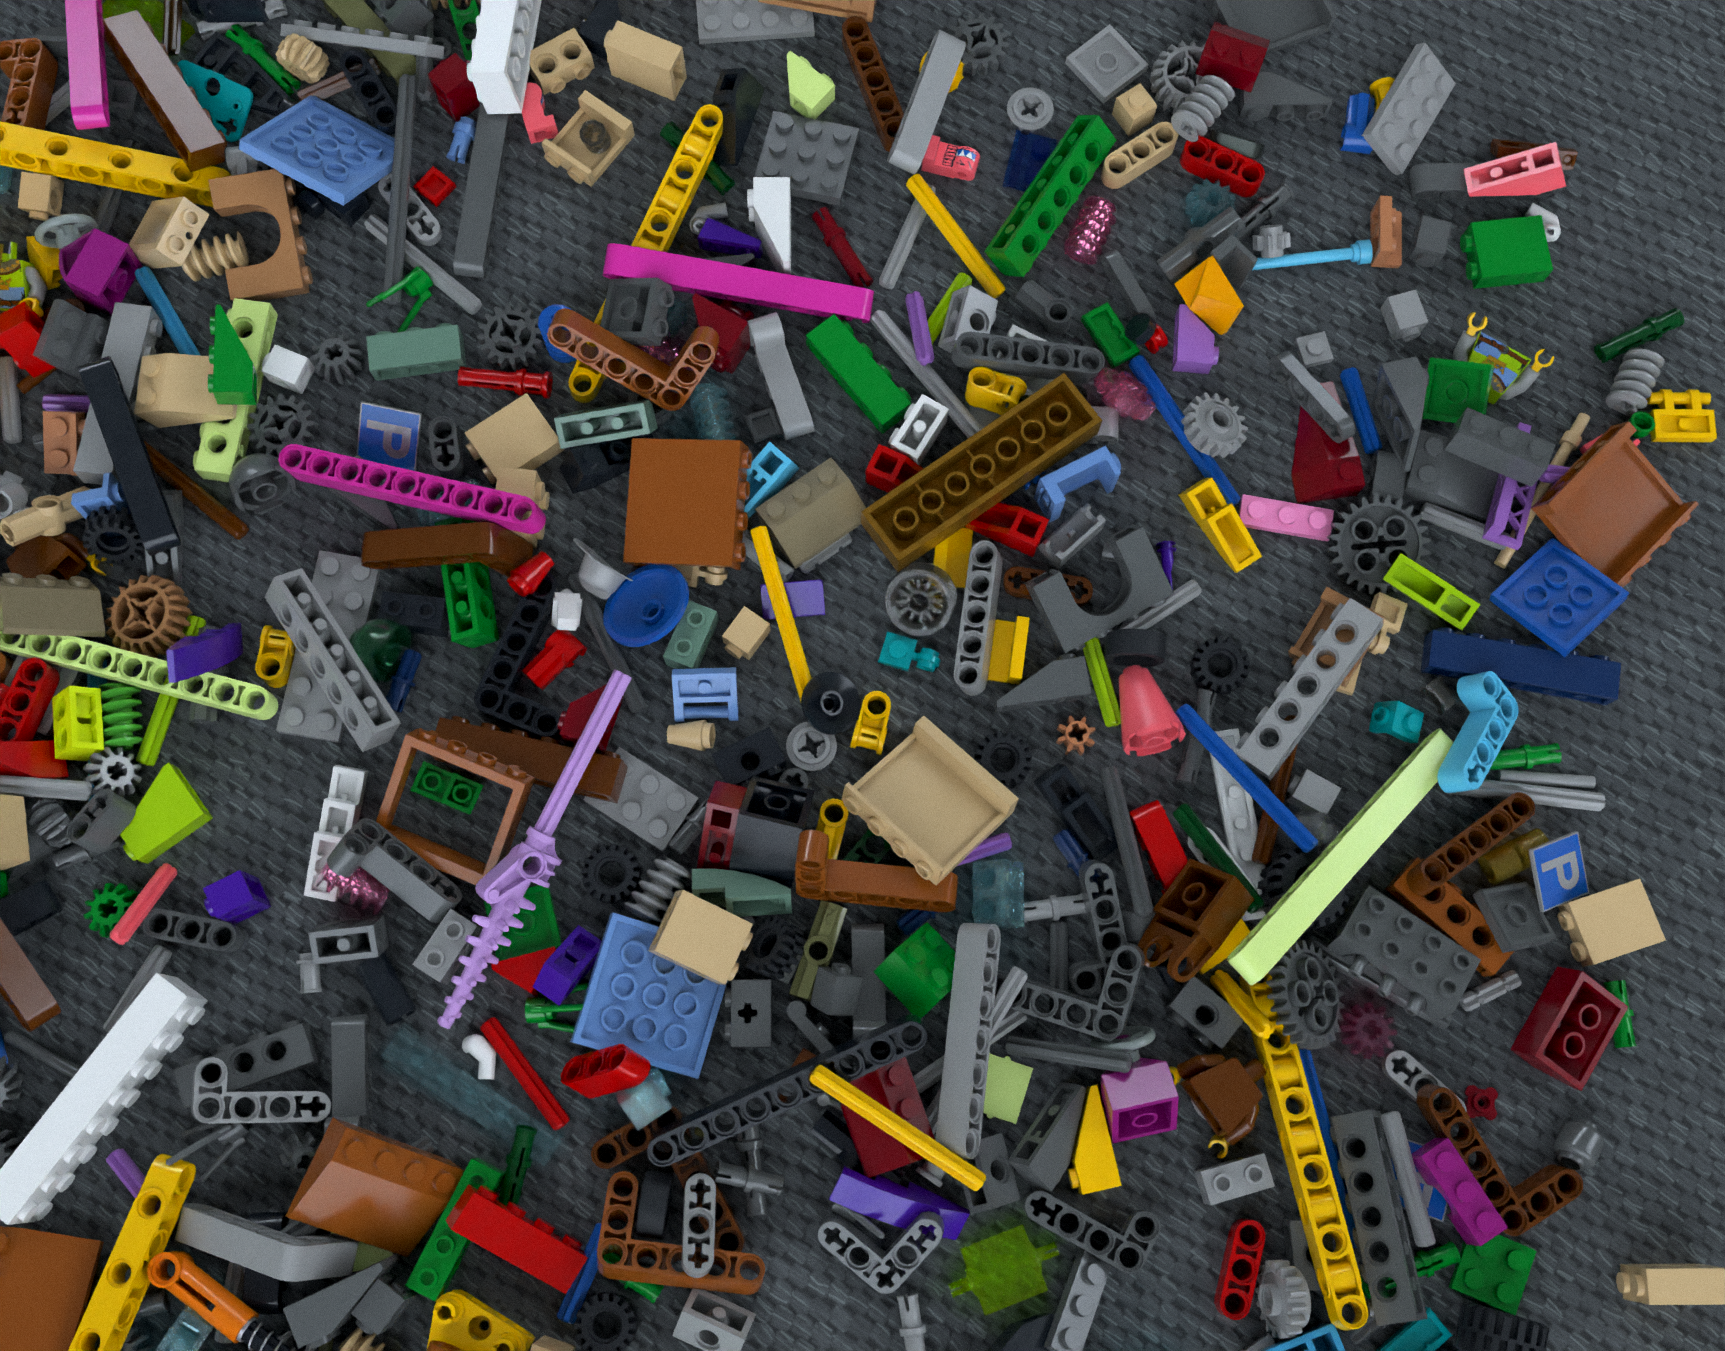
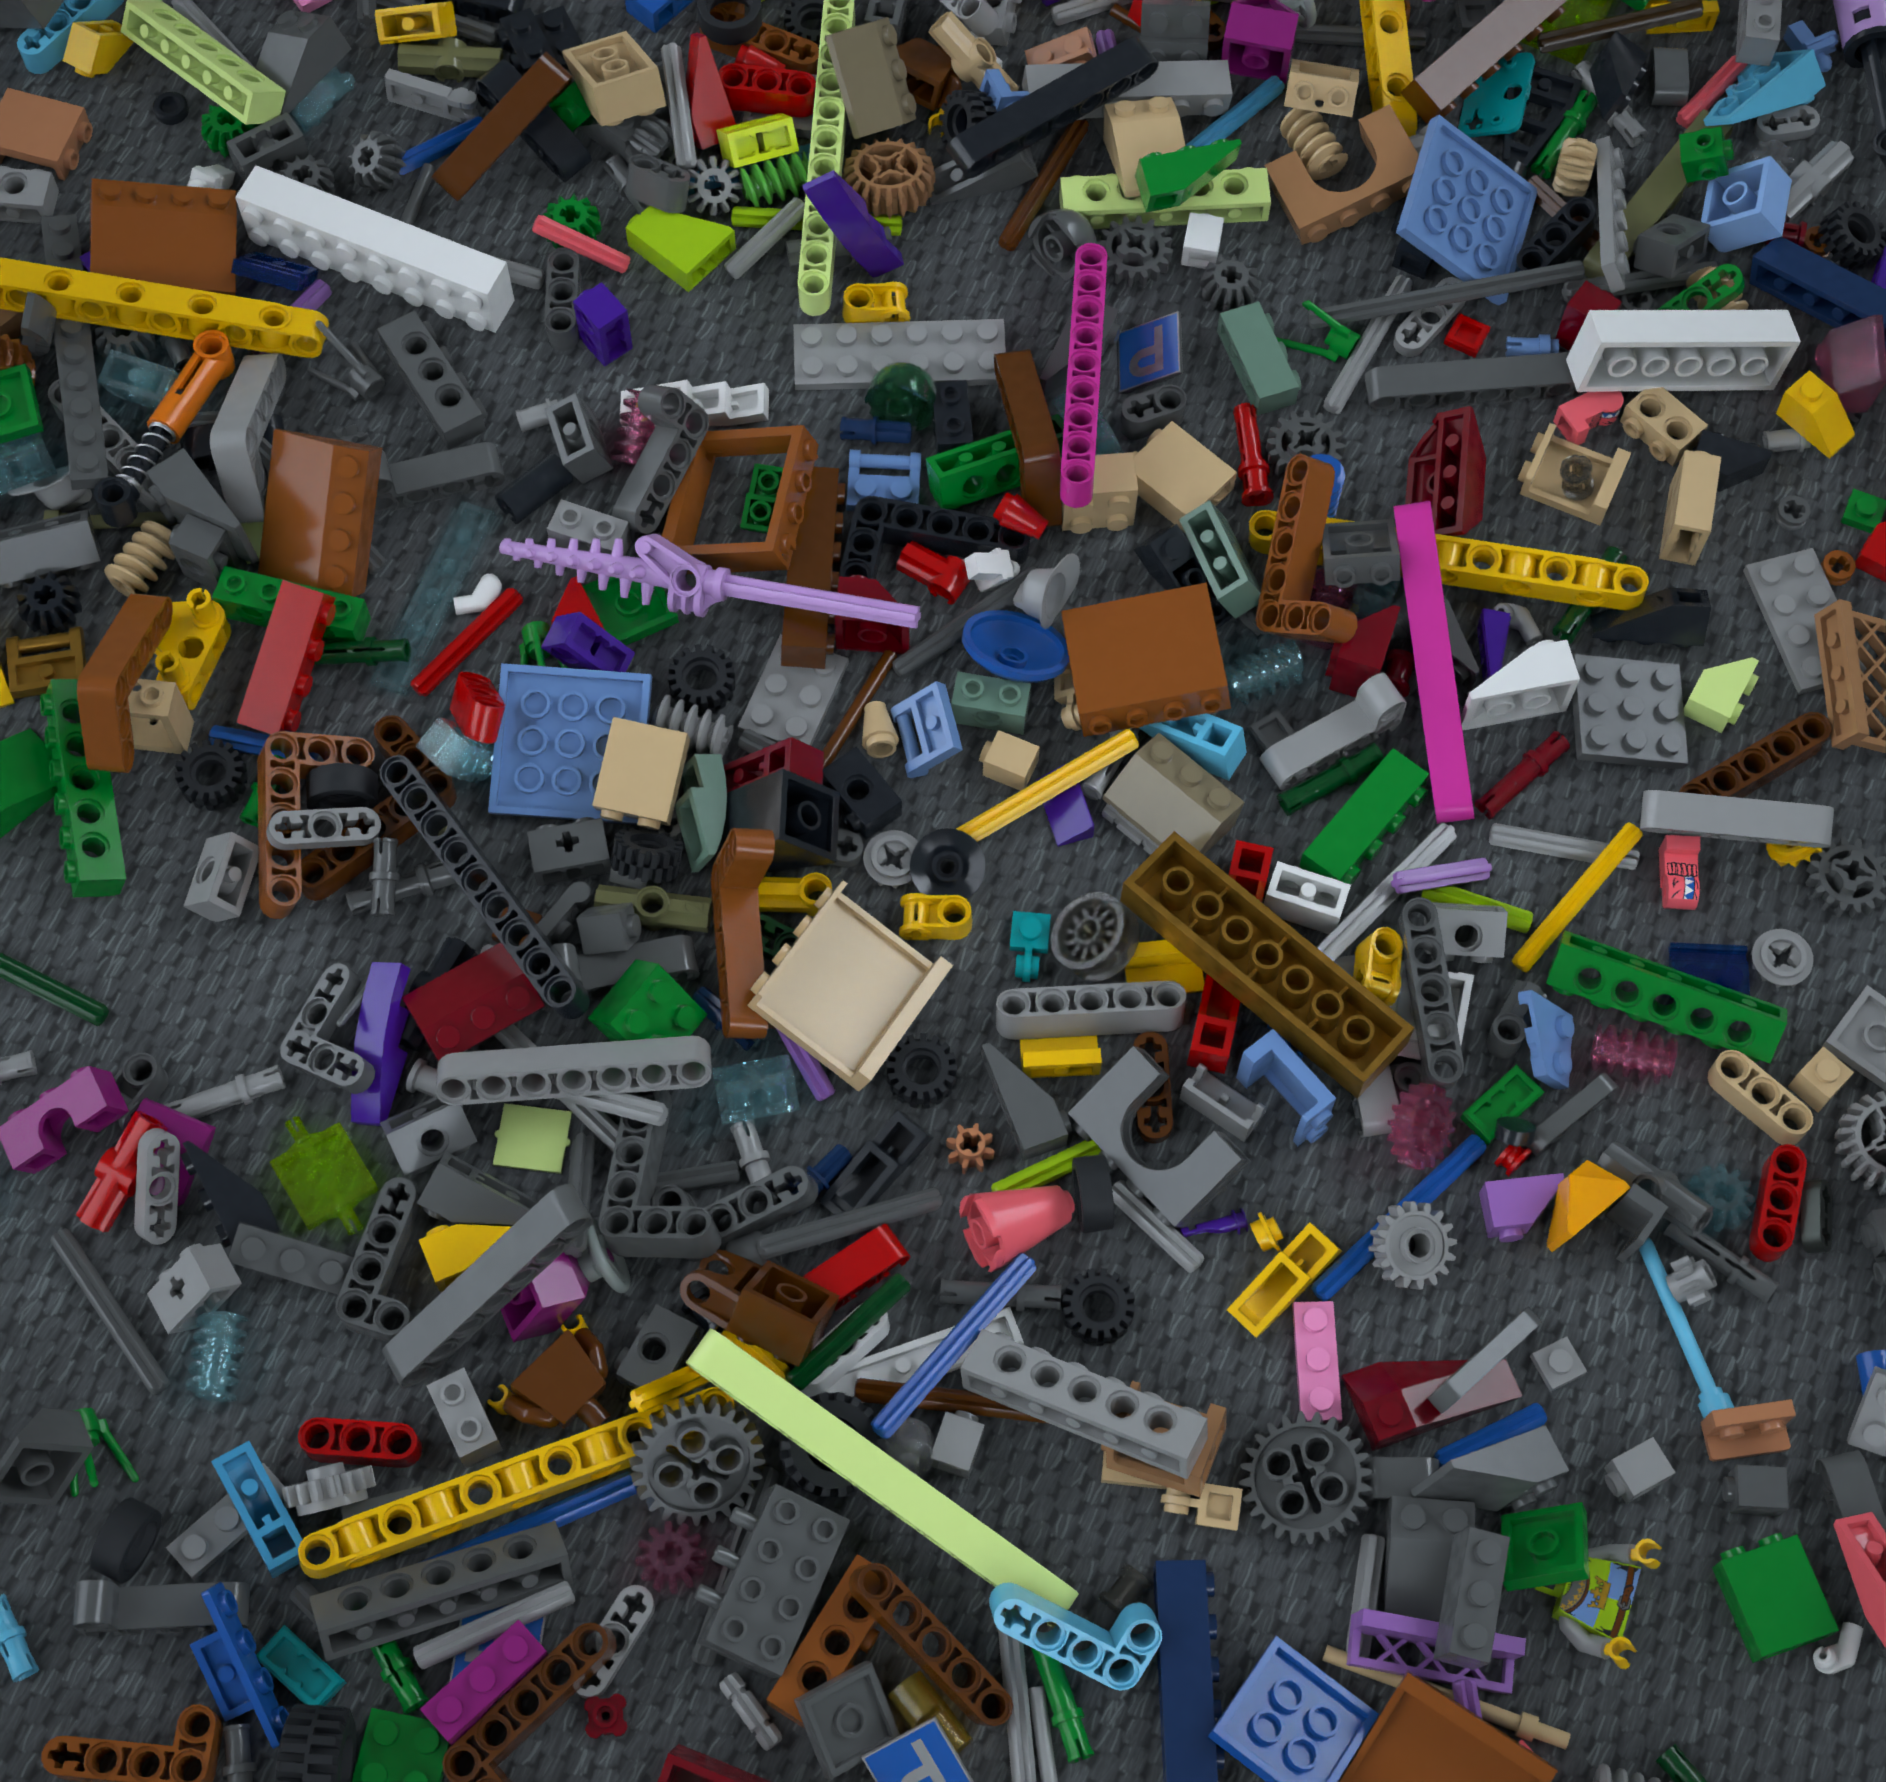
camera: 80 degrees right, 10 degrees down
(87, 1199) = (274, 271): none -> clear blue plate
(180, 737) = (765, 238): none -> light grey axle
(261, 1101) = (393, 393): light grey beam -> none
(332, 659) = (876, 348): light grey brick -> none
(462, 686) = (891, 487): none -> medium blue plate
(567, 234) = (1450, 472): none -> dark red wedge
(666, 750) = (857, 707): none -> reddish brown bar
(811, 378) = (1343, 772): none -> dark green pin
(897, 1127) = (455, 1002): yellow axle -> none
(1071, 287) = (1548, 1040): none -> medium blue wing
(1150, 1138) = (487, 1285): none -> dark grey beam
(1182, 528) = (1267, 1232): none -> yellow plate
(1202, 107) = (1841, 1147): light grey piece -> none
(1397, 720) = (1077, 1542): teal bracket -> none
(1431, 592) = (1257, 1554): lime slope -> none

